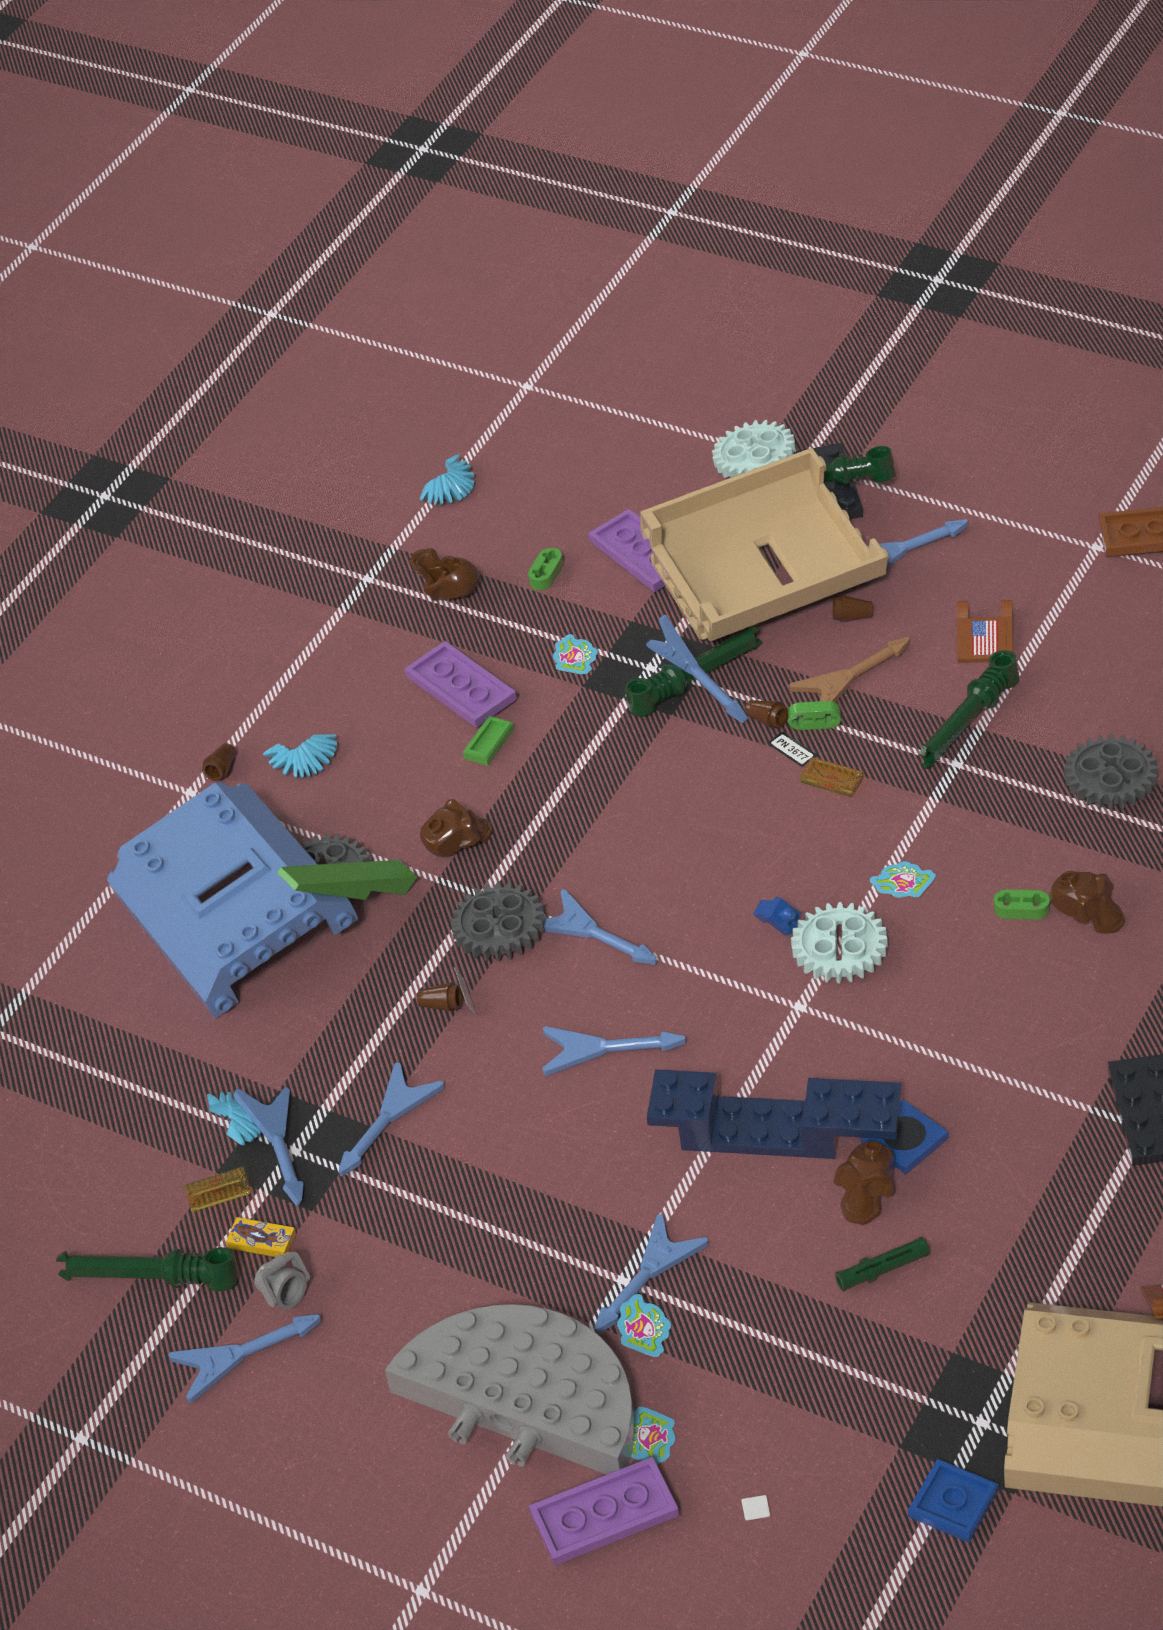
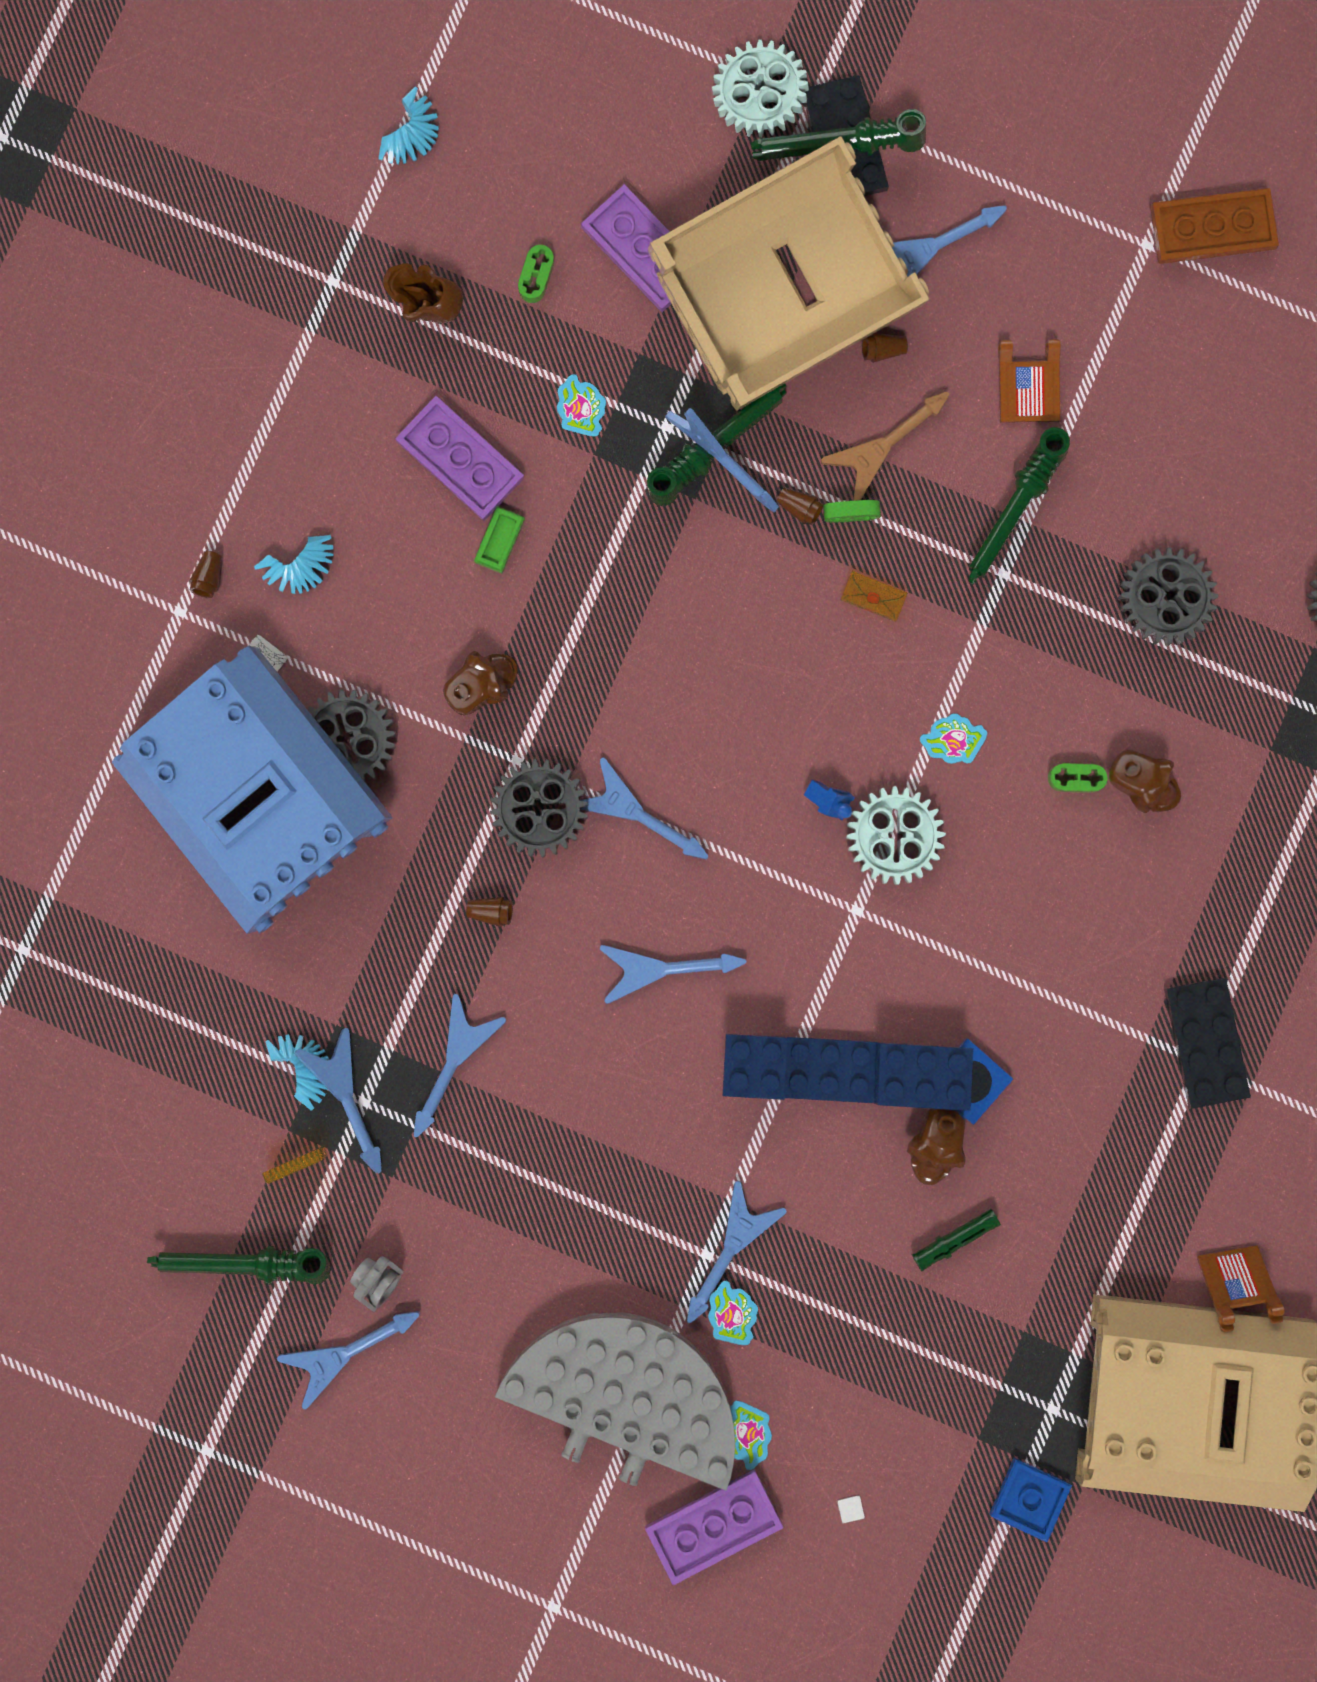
camera: 15 degrees left, 40 degrees up
(260, 1237) = (346, 1216): tile -> none
(350, 879) = (378, 791): bright green slope -> none
(465, 991) = (515, 902): white sticker -> none
(792, 749) = (828, 551): sticker -> none

